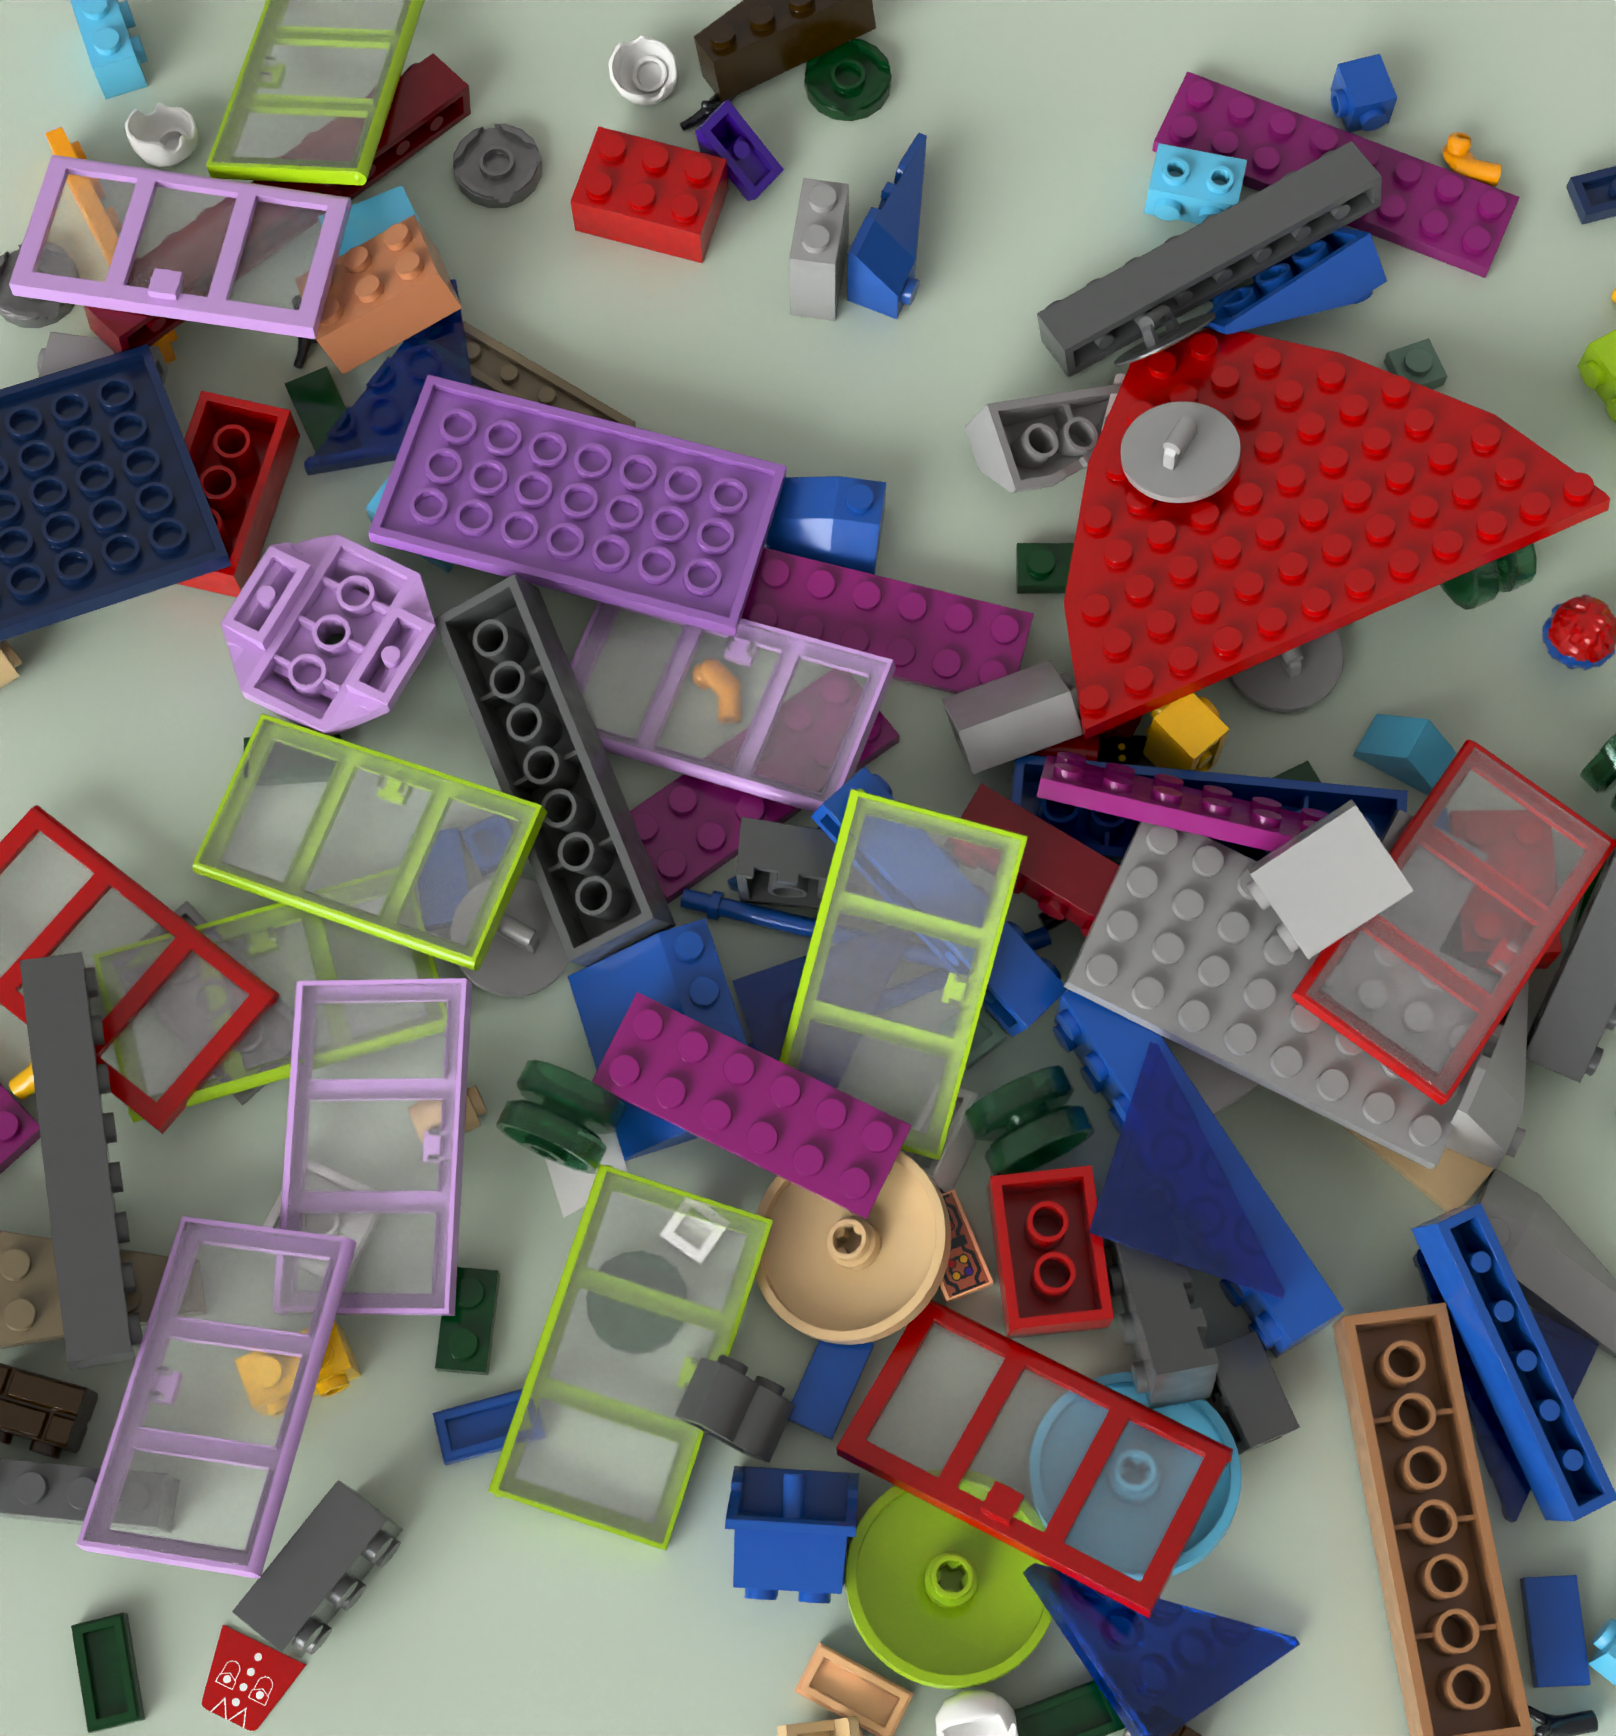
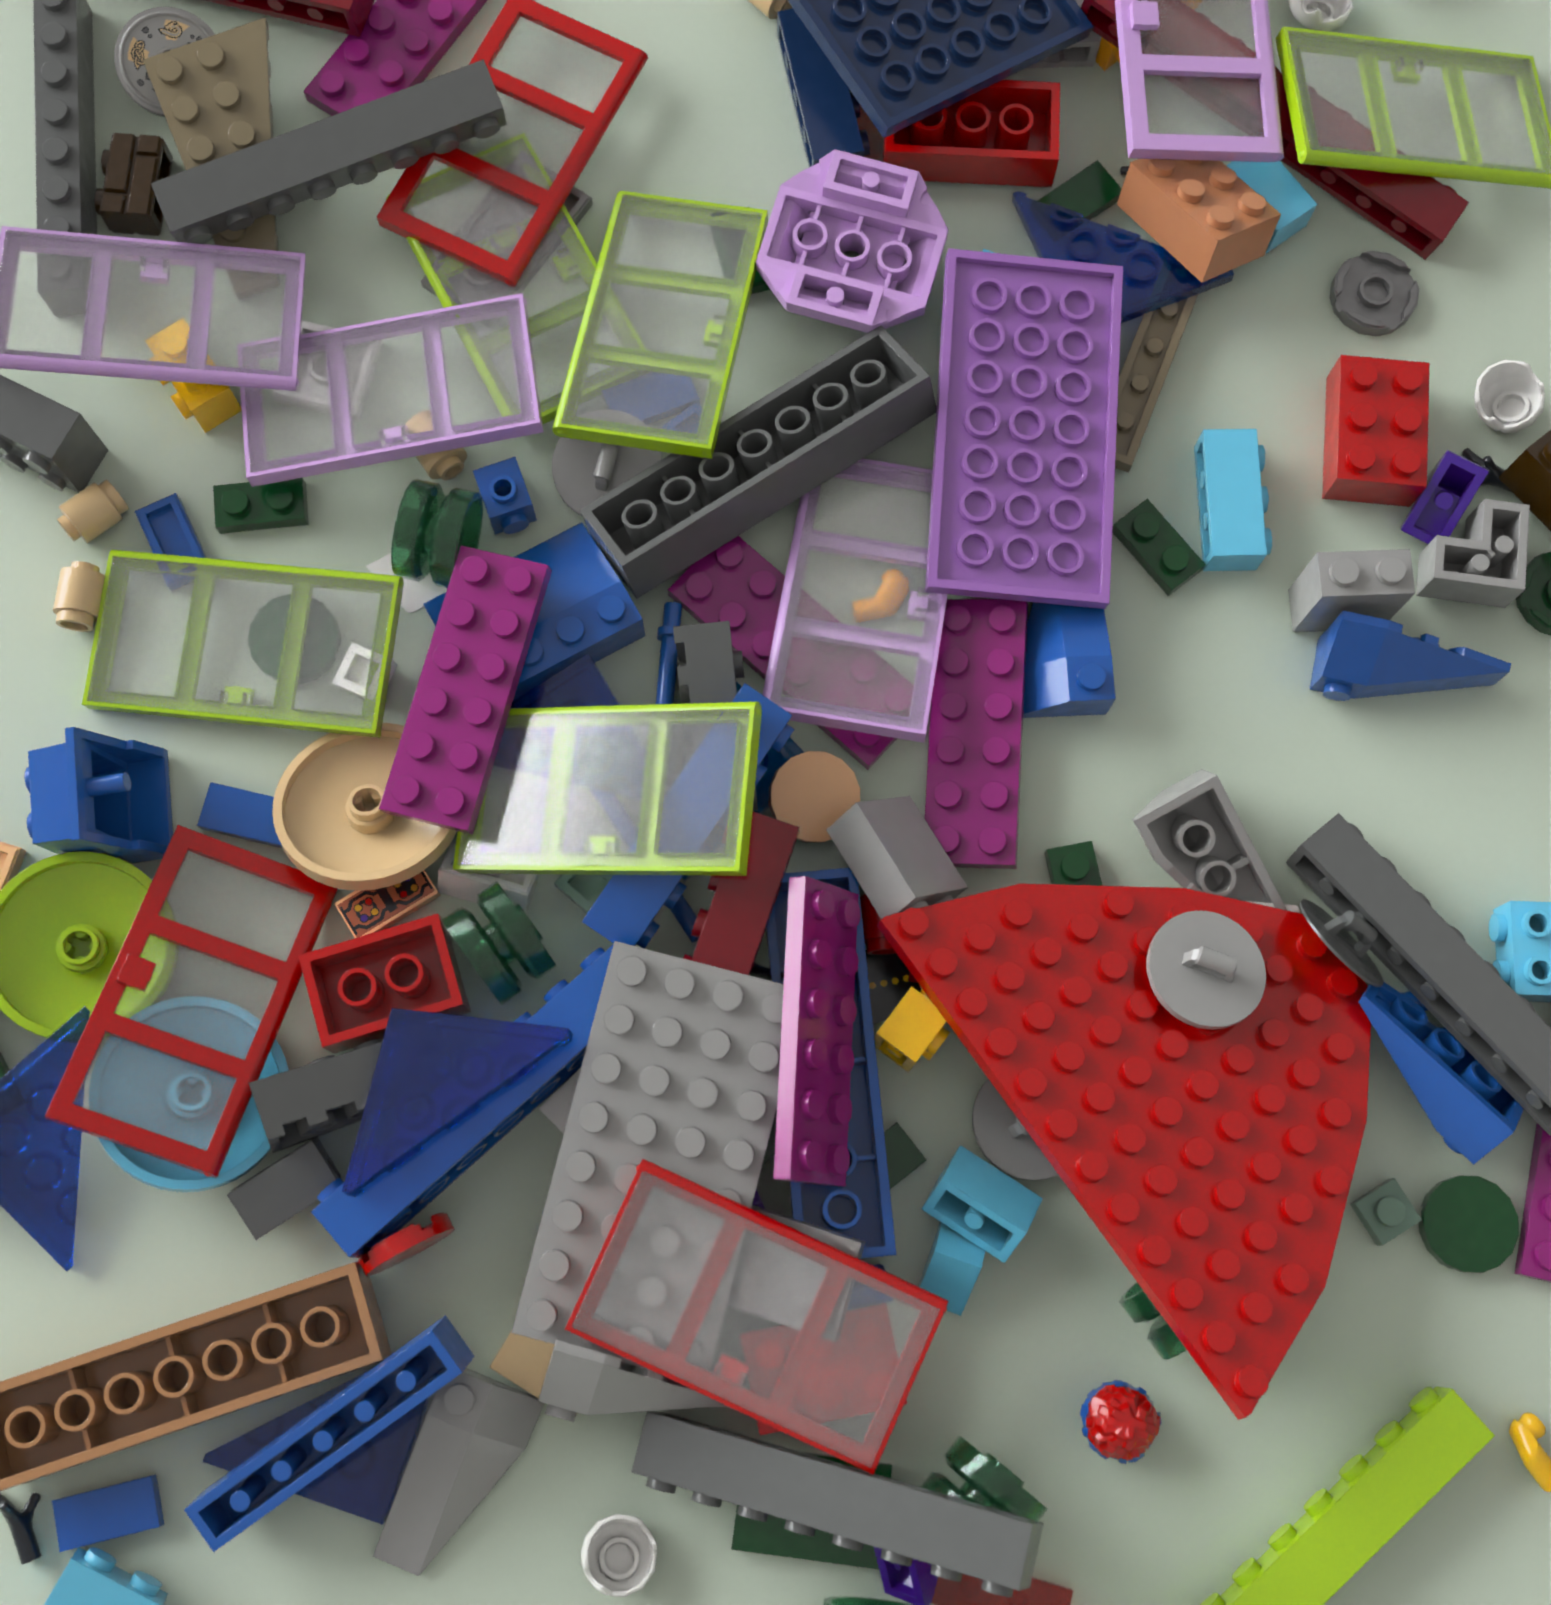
camera: 75 degrees right, 5 degrees up
(134, 640) = (820, 97): none -> dark blue brick
(435, 1510) = (92, 511): none -> tan brick
(521, 1040) = (505, 496): none -> blue brick
(536, 1536) = (78, 596): none -> tan brick
(691, 340) = (1231, 500): none -> medium azure brick
(725, 417) = (1158, 547): none -> dark green plate
(736, 1408) = (202, 733): dark grey brick -> none
(807, 126) = (1486, 564): none -> light grey brick
(928, 780) = (812, 793): none -> light nougat tile
(1327, 880) = (751, 1171): brick -> none
(1330, 1260) = (405, 1244): none -> red tile
(1363, 711) = (982, 1204): none -> medium azure brick
(1436, 302) = (1468, 1224): none -> dark green tile

